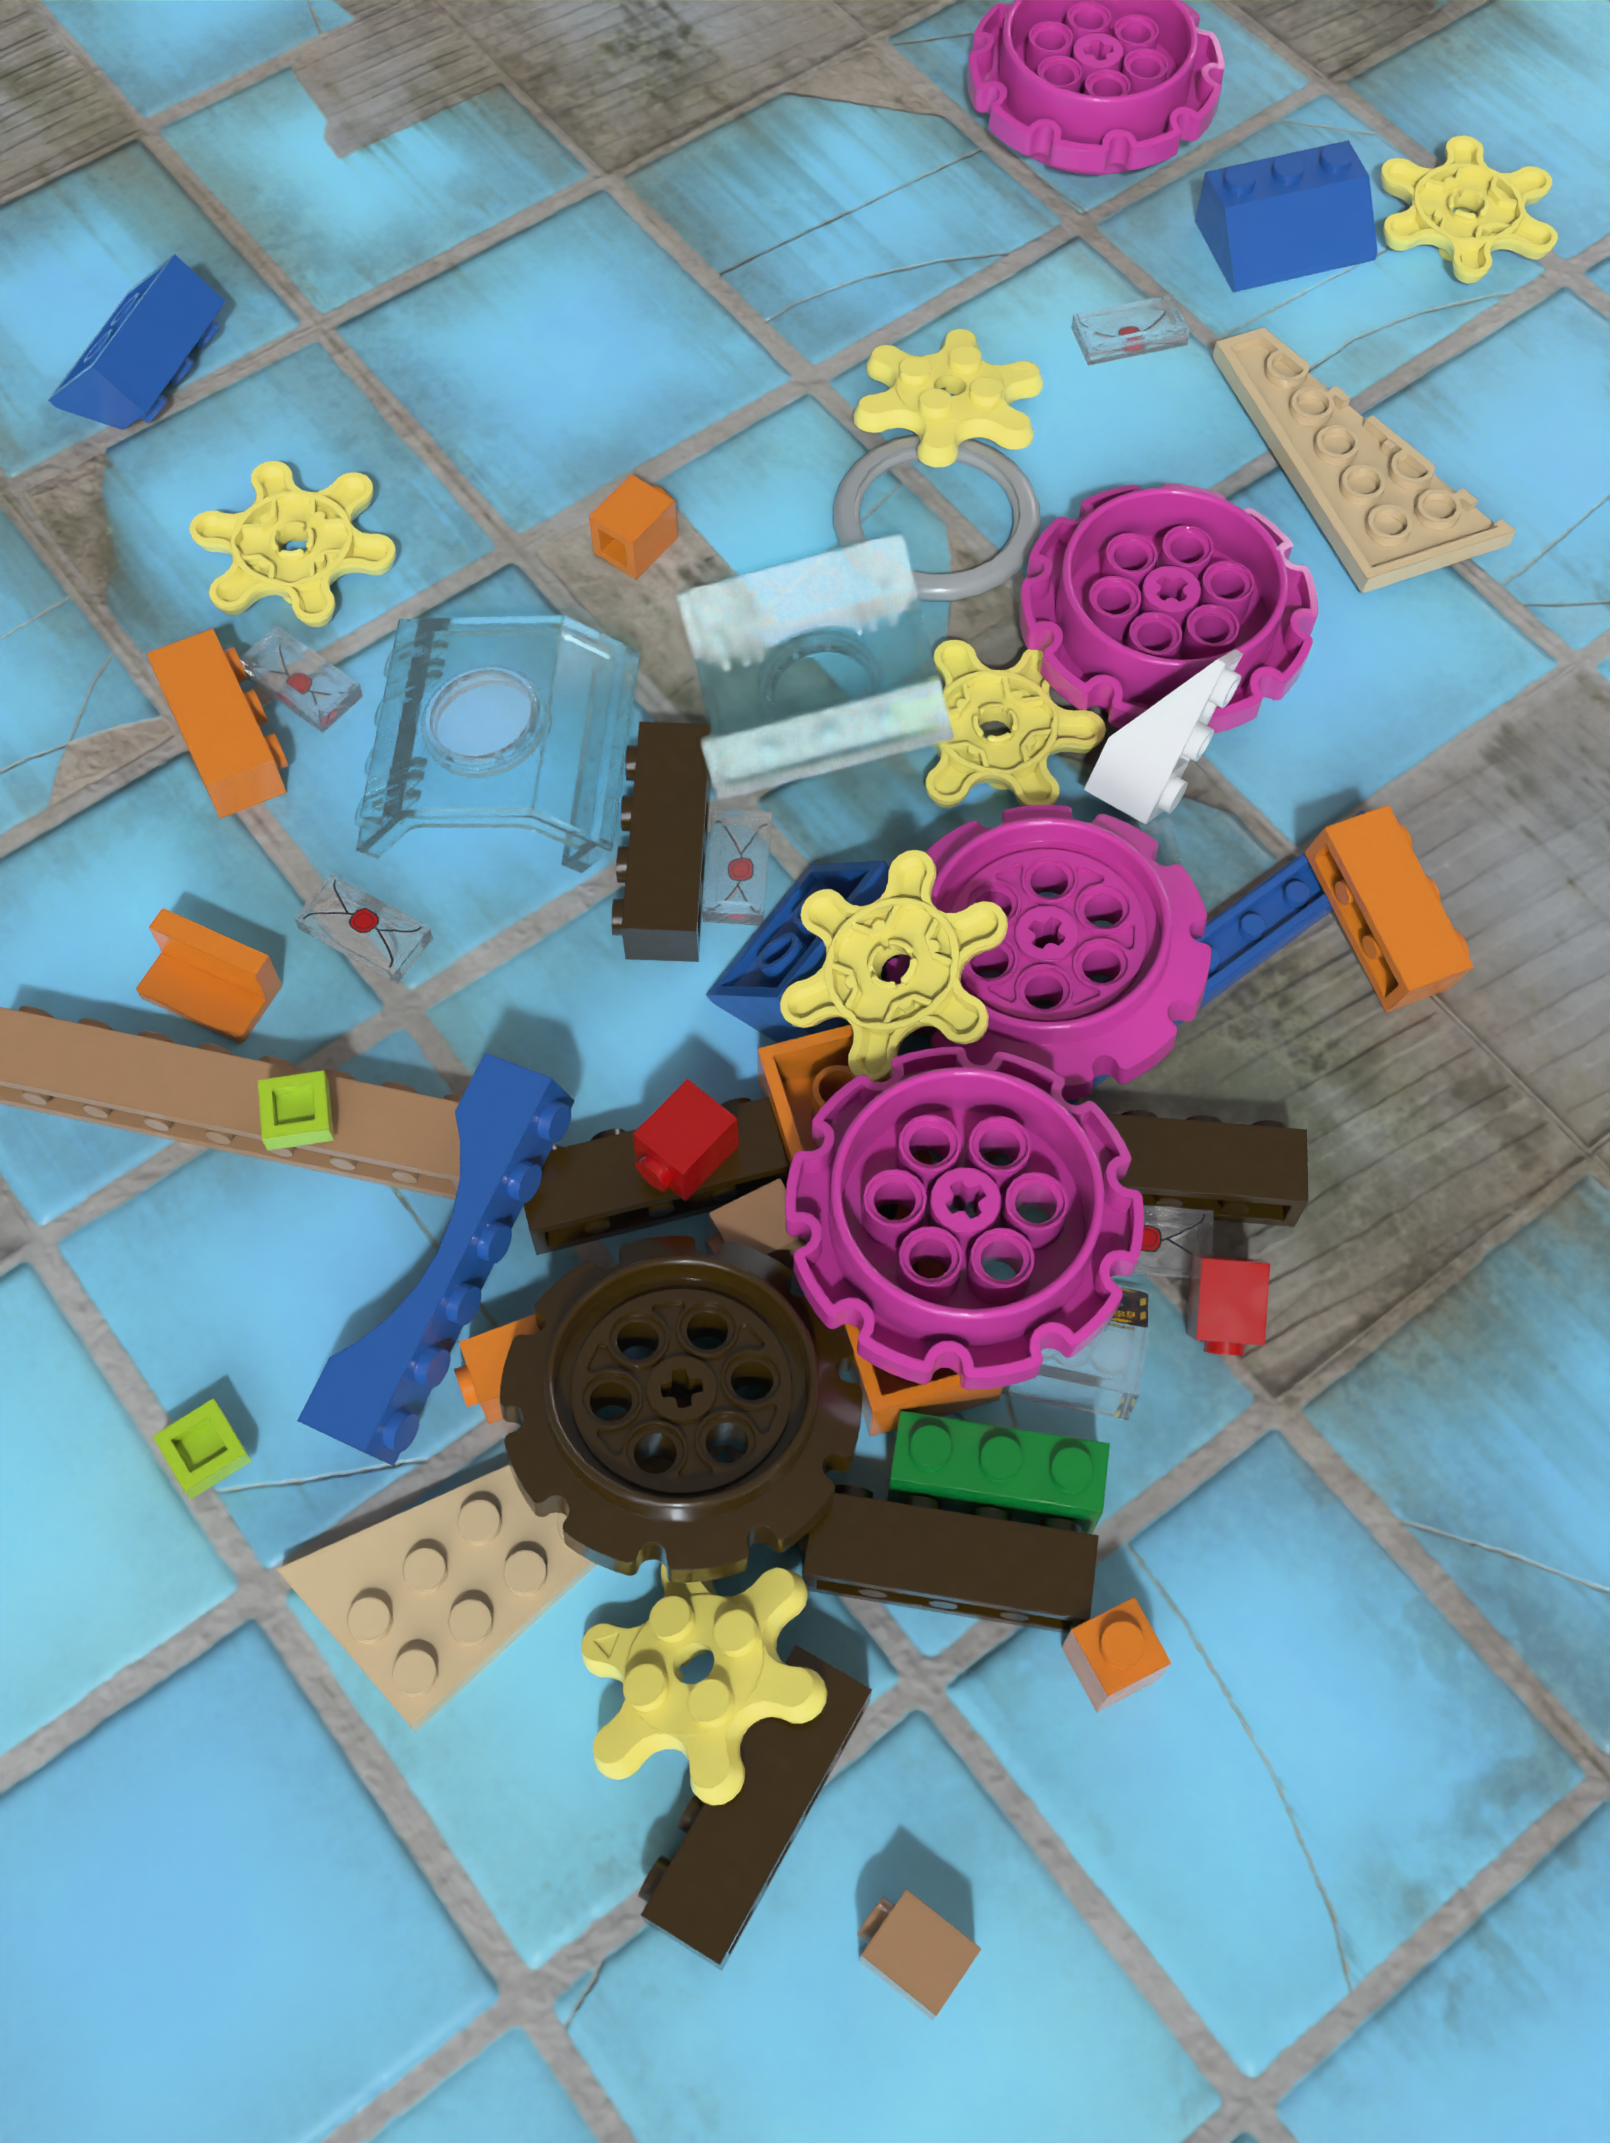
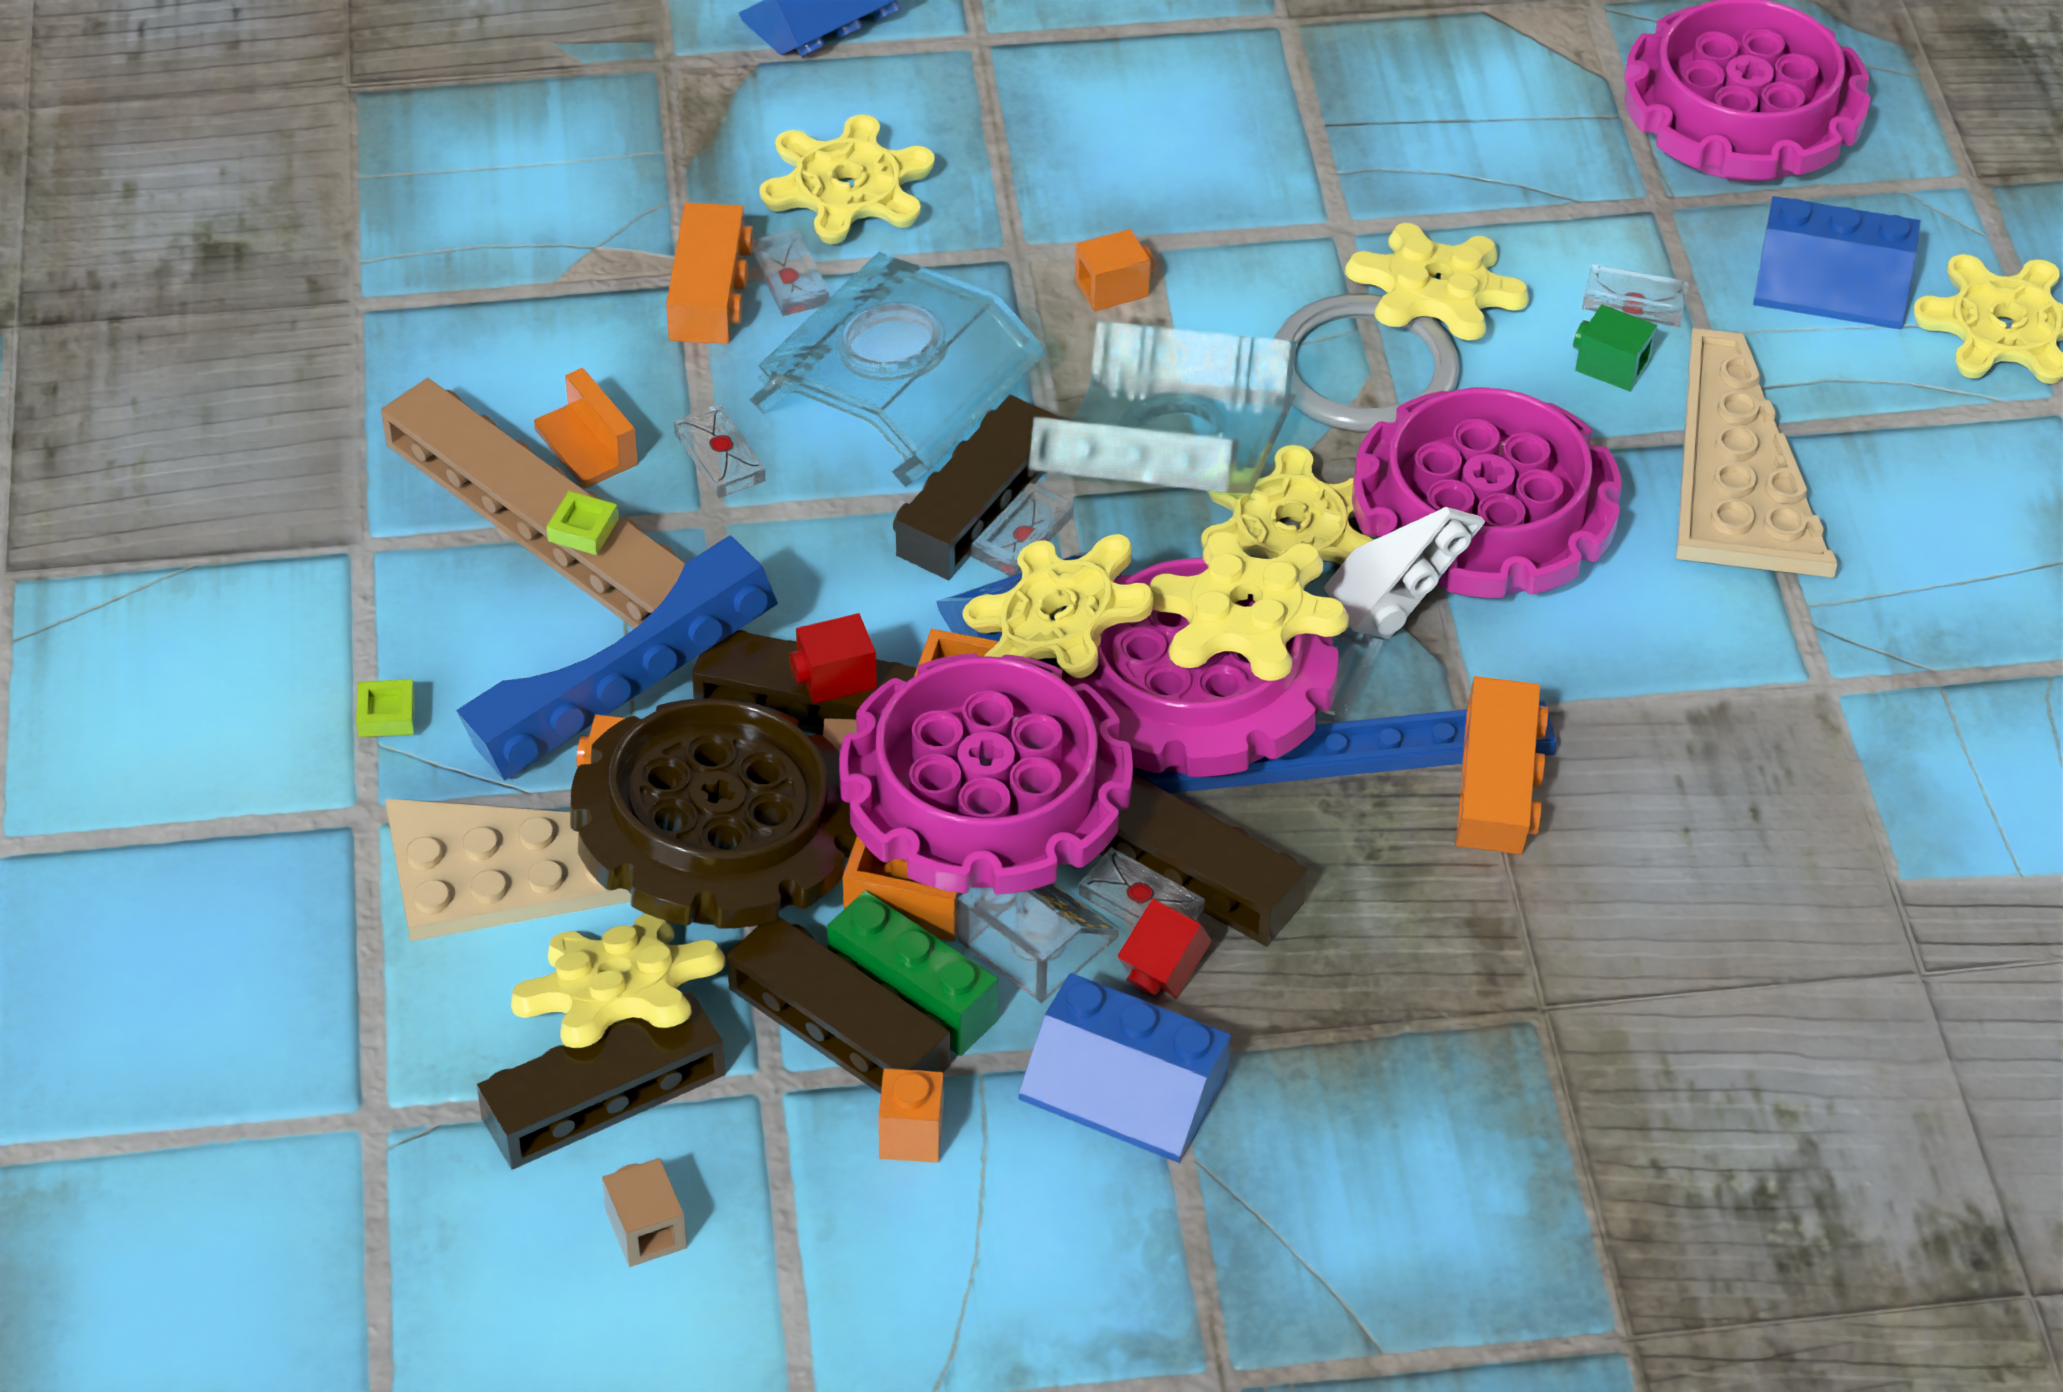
camera: 30 degrees right, 15 degrees down
(1080, 904) = (1254, 631): none -> light yellow plate
(1159, 393) = (1614, 347): none -> green brick
(1282, 1463) = (1125, 1067): none -> slope

